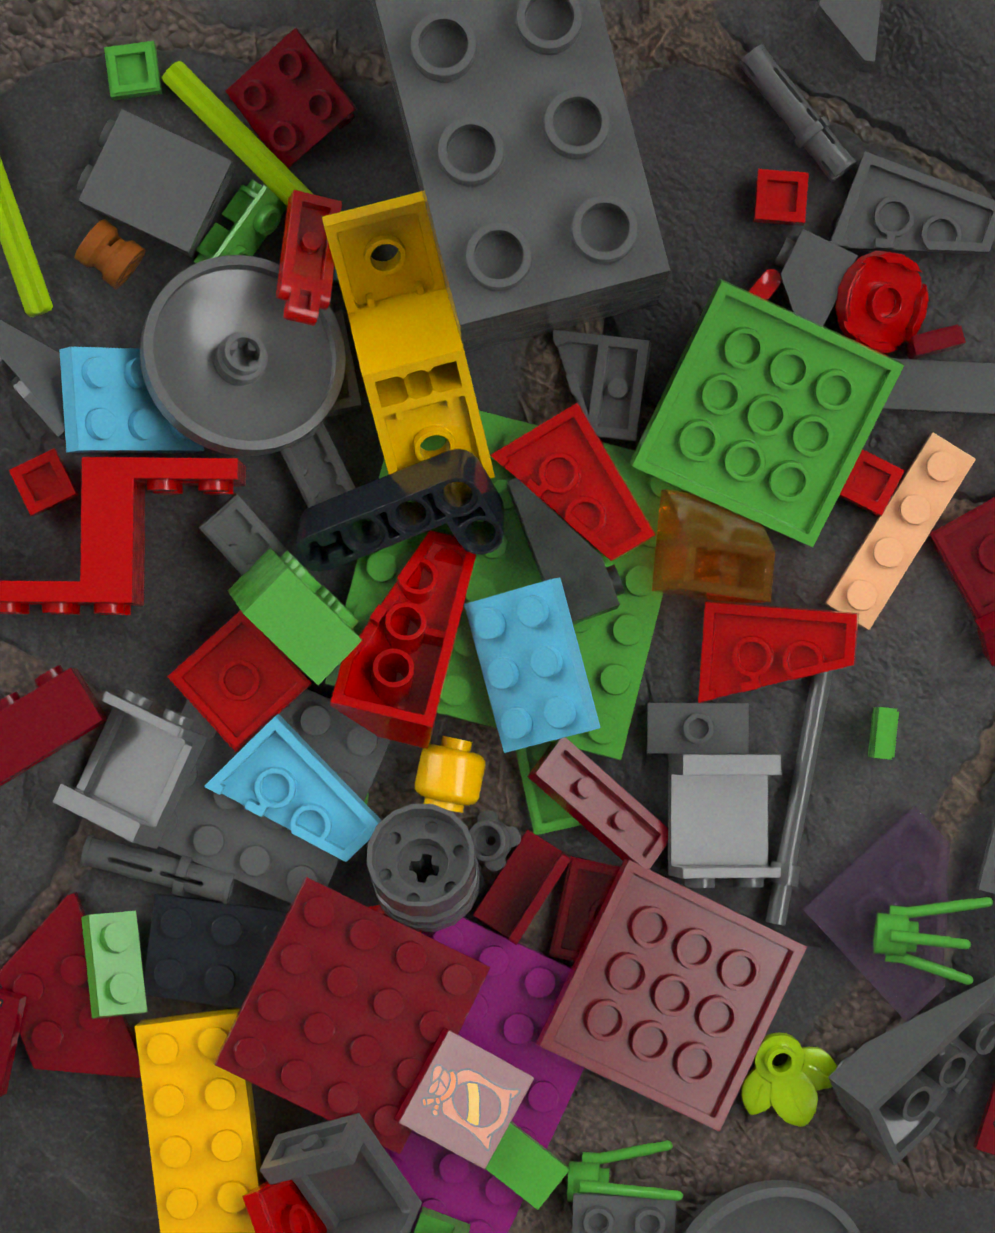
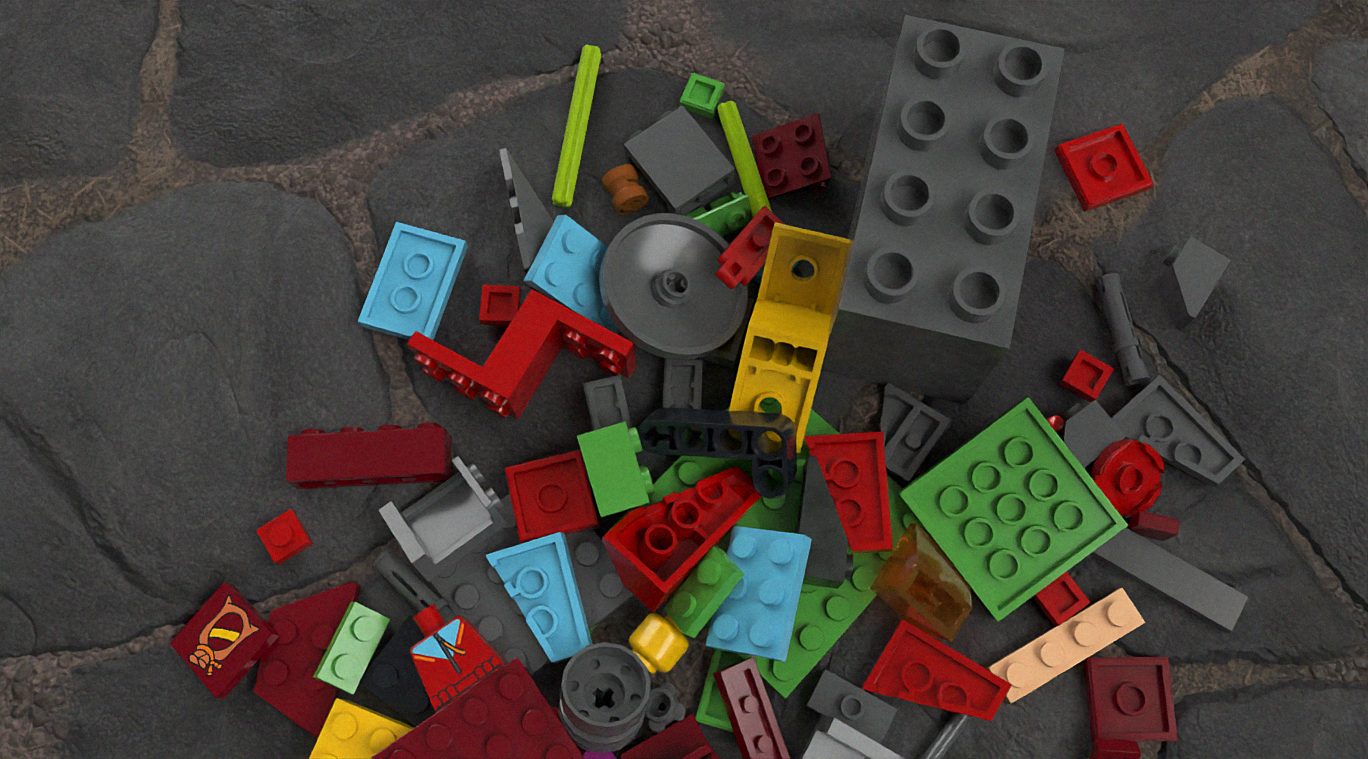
camera: 30 degrees right, 15 degrees down
(235, 915) = (451, 656): none -> red torso
(471, 696) = (703, 591): none -> bright green plate

